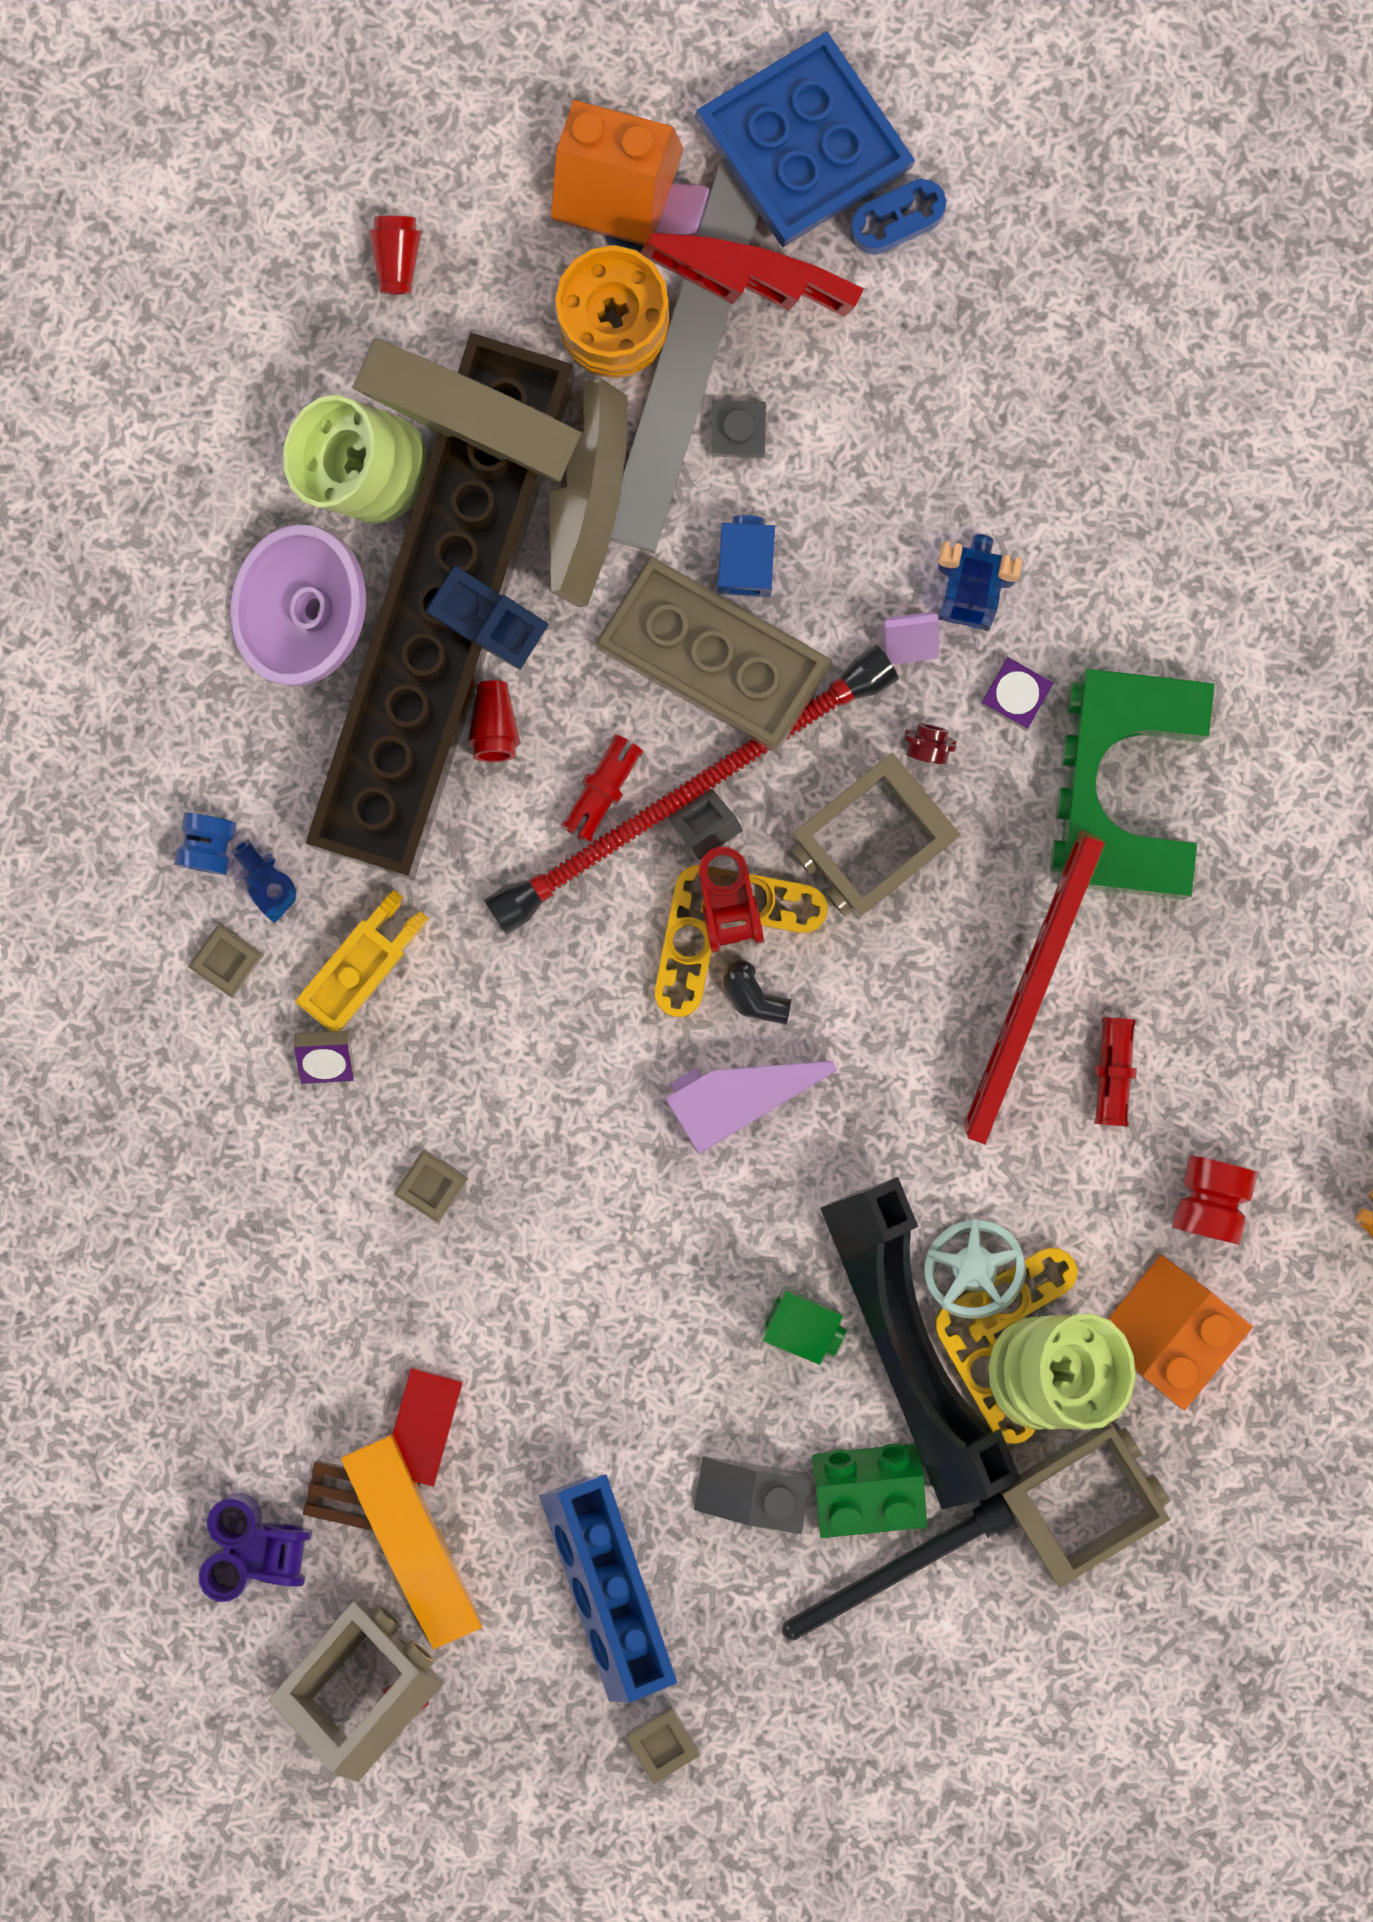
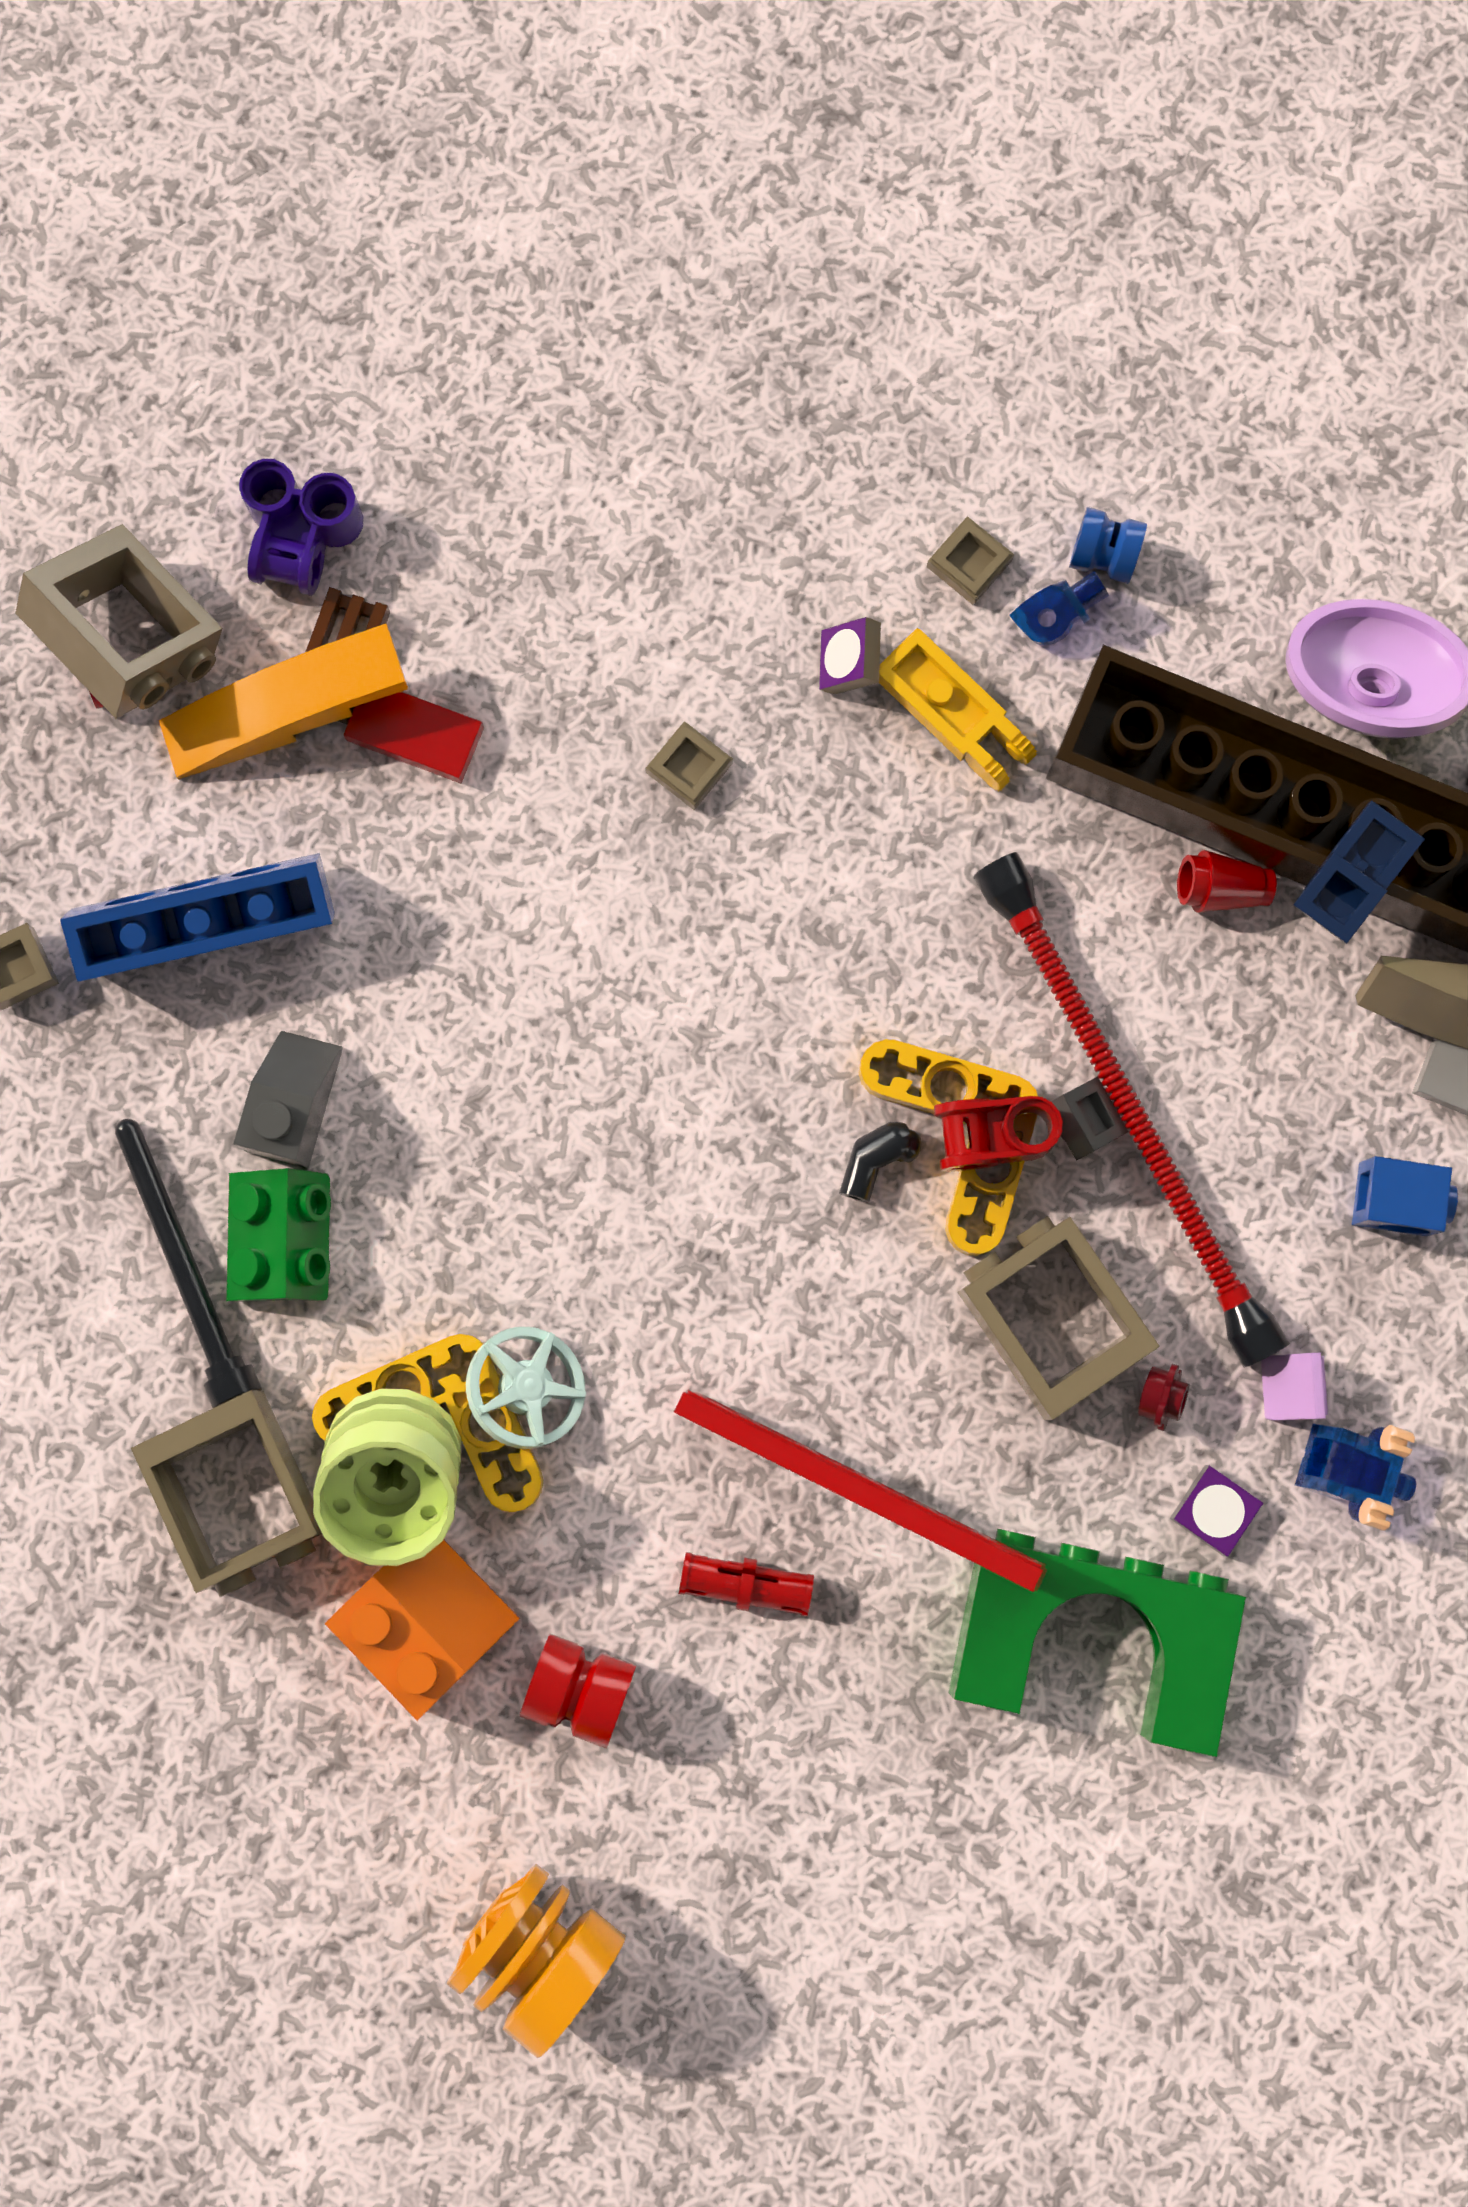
camera: 90 degrees right, 5 degrees down
(602, 788) = (1138, 1002): red pin -> none
(713, 654) = (1289, 1148): dark tan tile -> none
(730, 1099) = (756, 1112): lavender slope -> none
(803, 1327) = (479, 1172): green slope -> none
(955, 1445) = (316, 1342): black arch -> none

